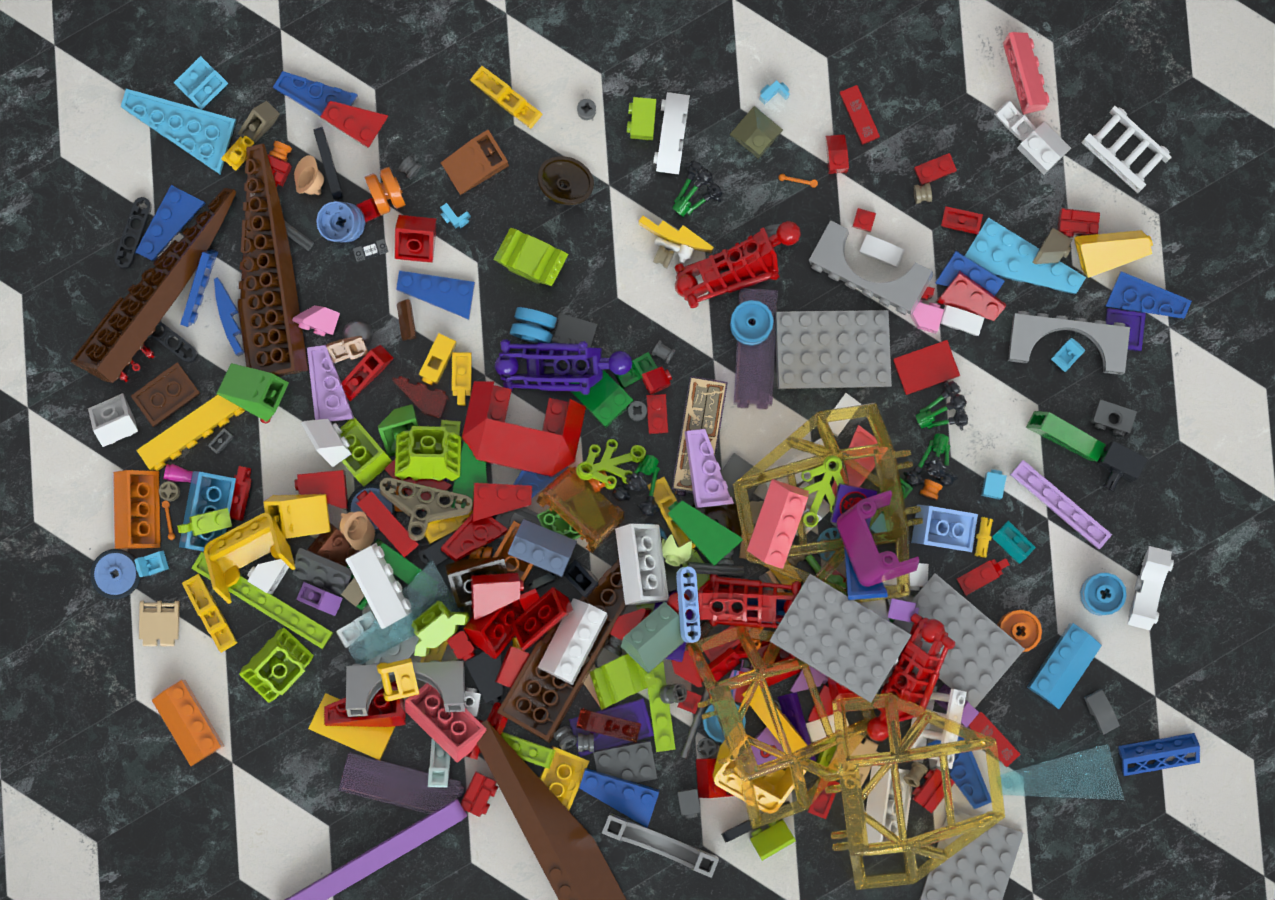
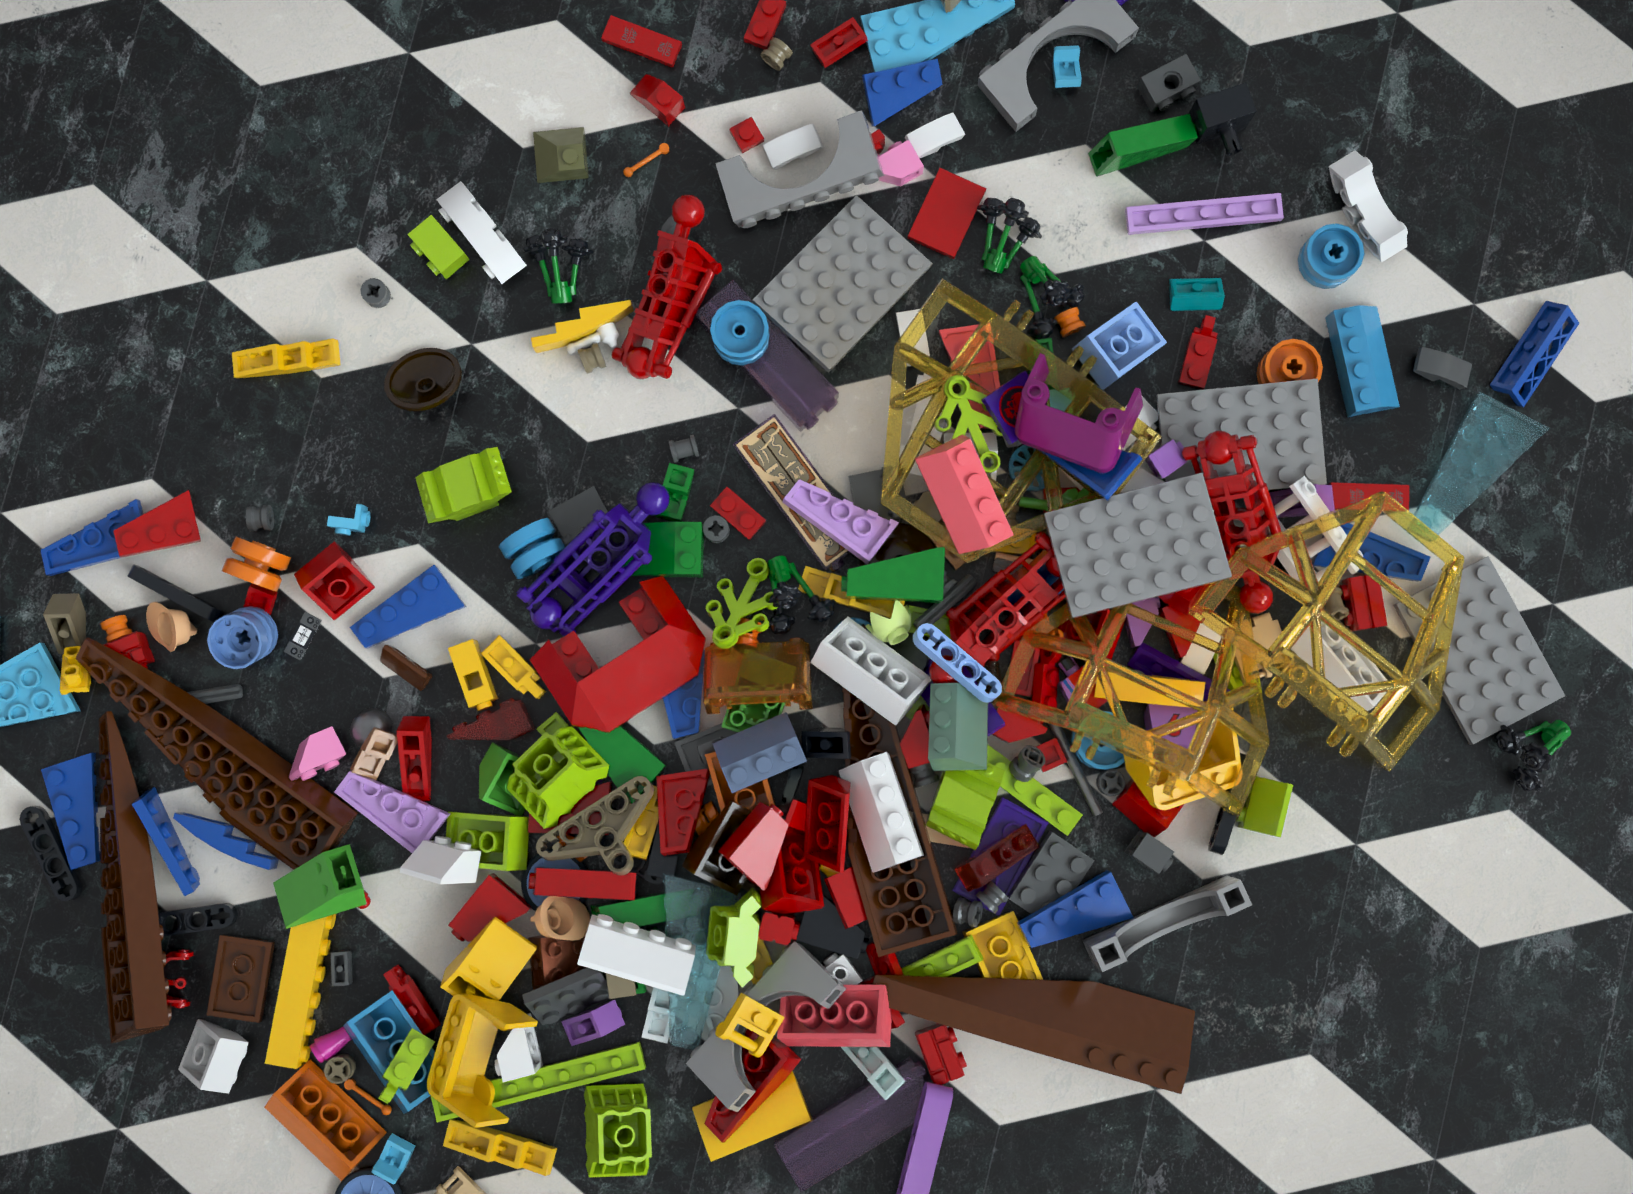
camera: 40 degrees left, 0 degrees up
(475, 162) = (318, 449): dark orange slope -> none
(498, 499) = (668, 748): red wing -> none
(656, 380) = (704, 481): red slope -> none
(770, 91) = (534, 102): medium azure bracket -> none
(823, 802) = (1276, 721): red plate -> none
(971, 297) = (920, 104): wing -> none
(983, 537) = (1164, 317): yellow pin -> none
(993, 484) = (1123, 258): medium azure brick -> none

